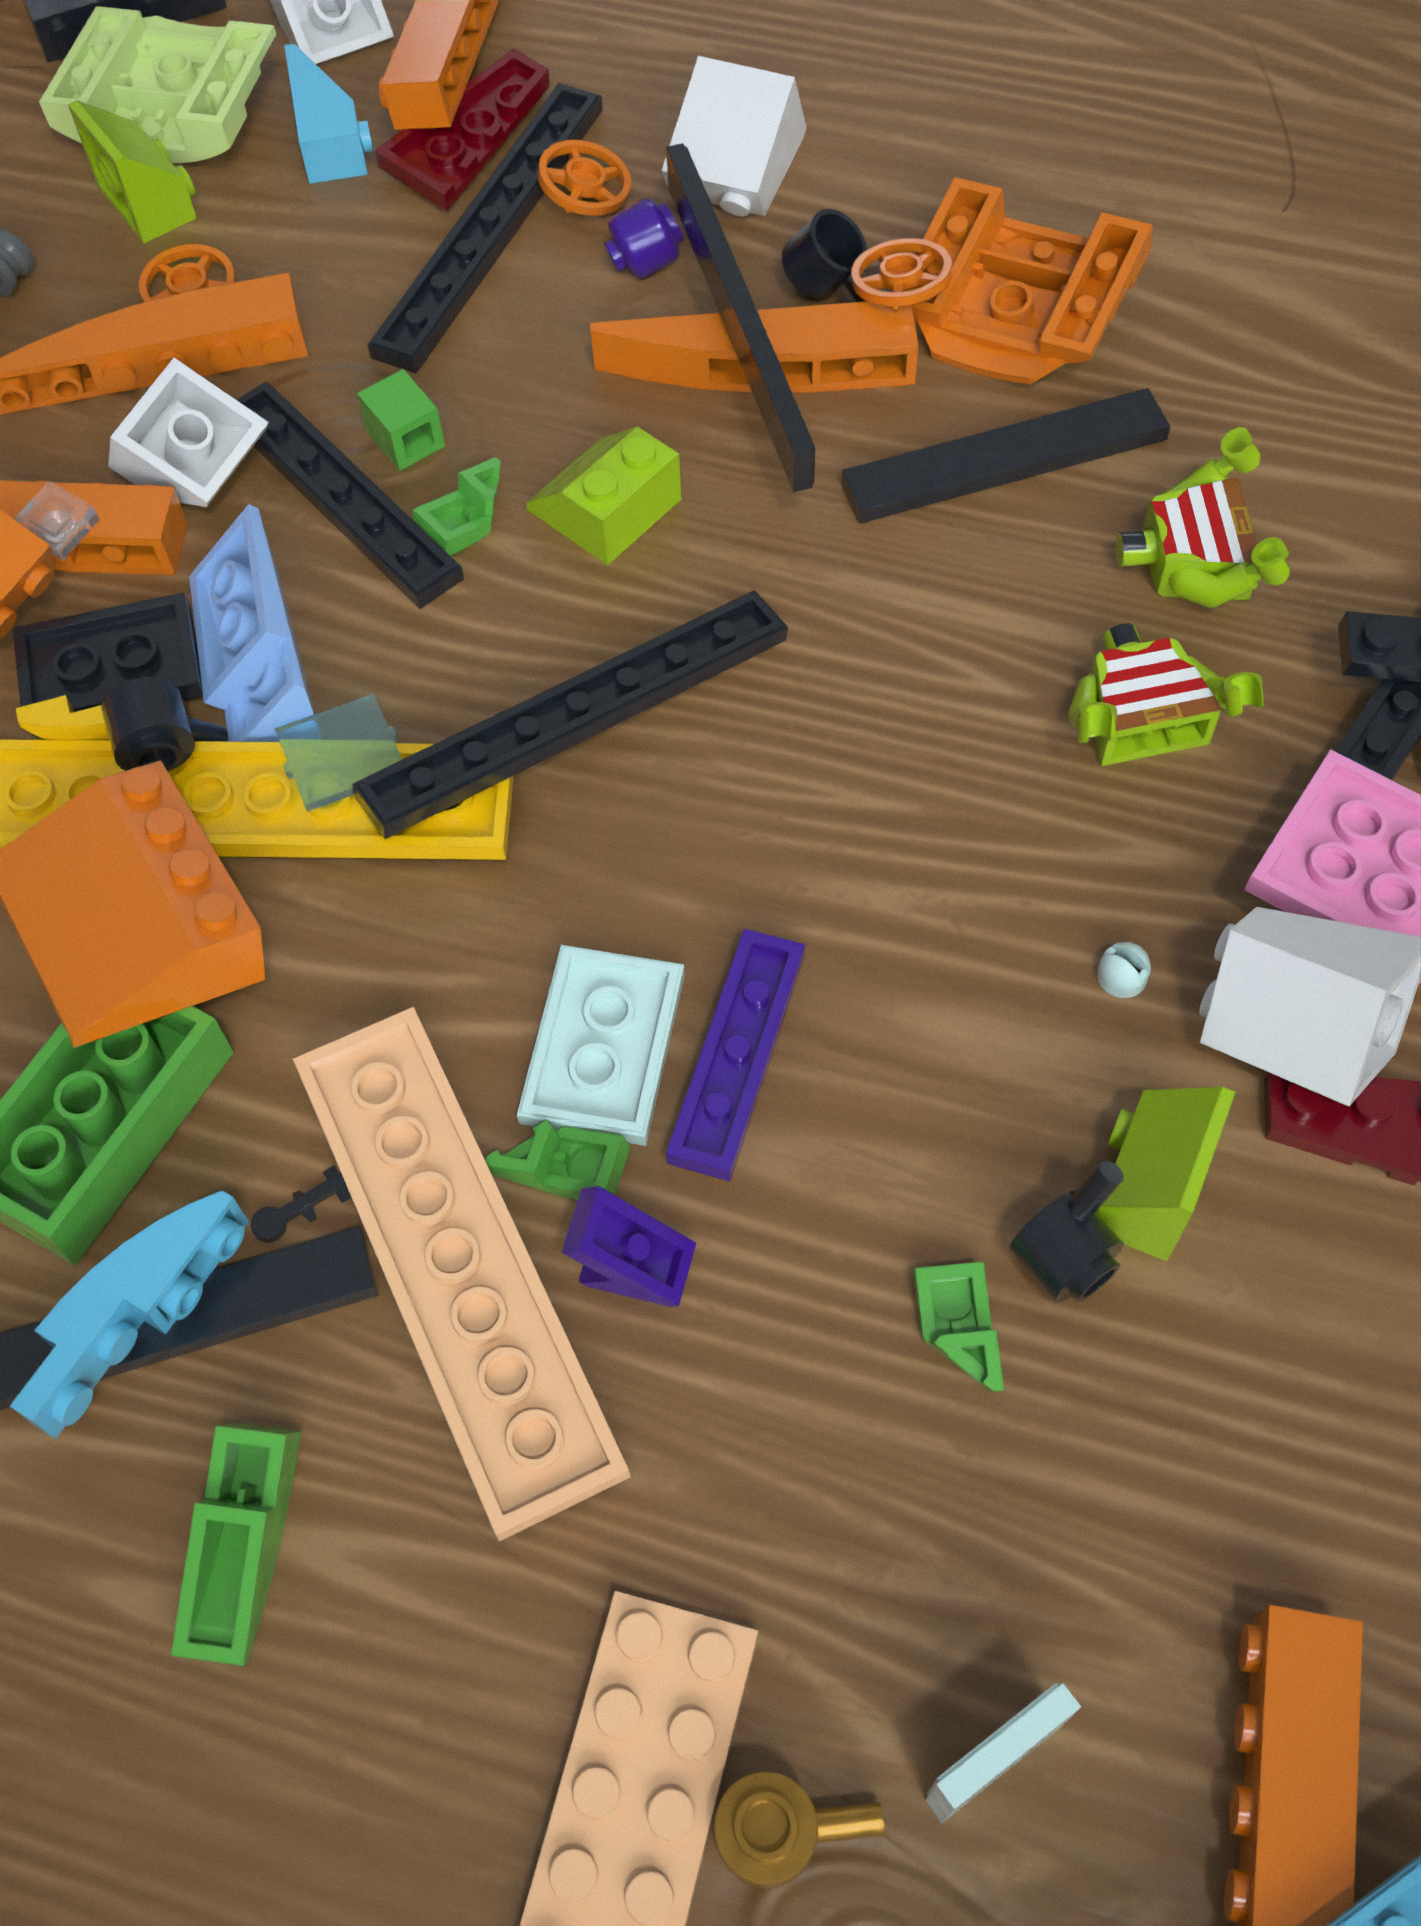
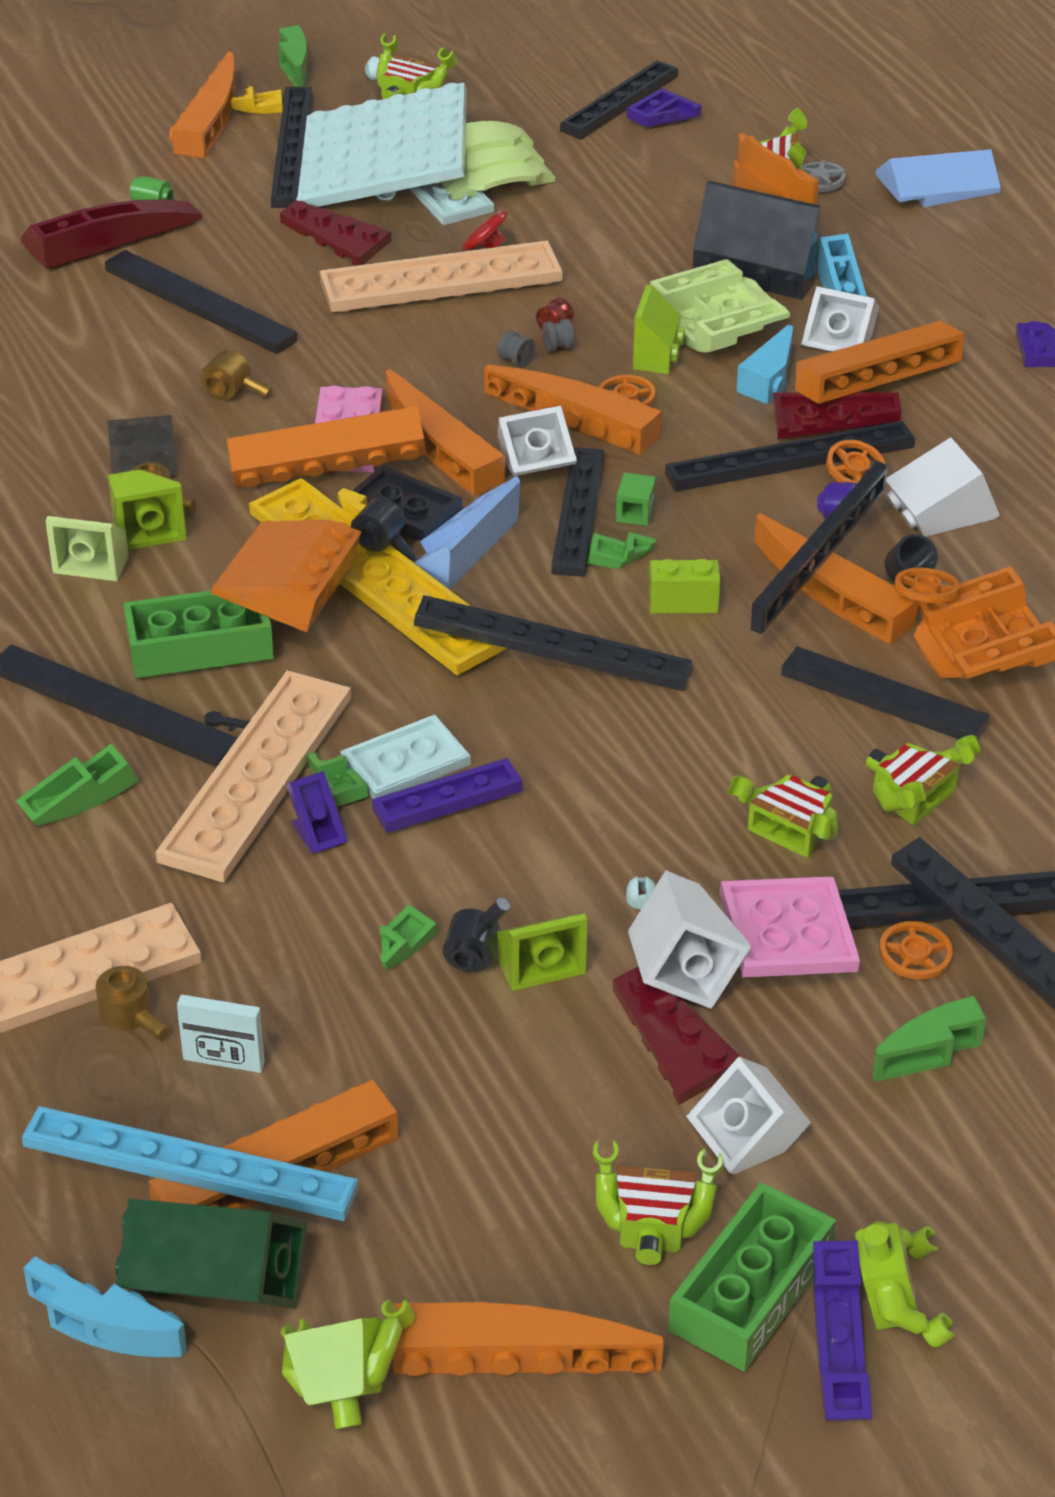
camera: 45 degrees right, 20 degrees down
(58, 518) = (439, 433): clear plate -> none
(145, 1279) = (138, 687): medium azure slope -> none
(337, 749) = (441, 584): clear light blue piece -> none

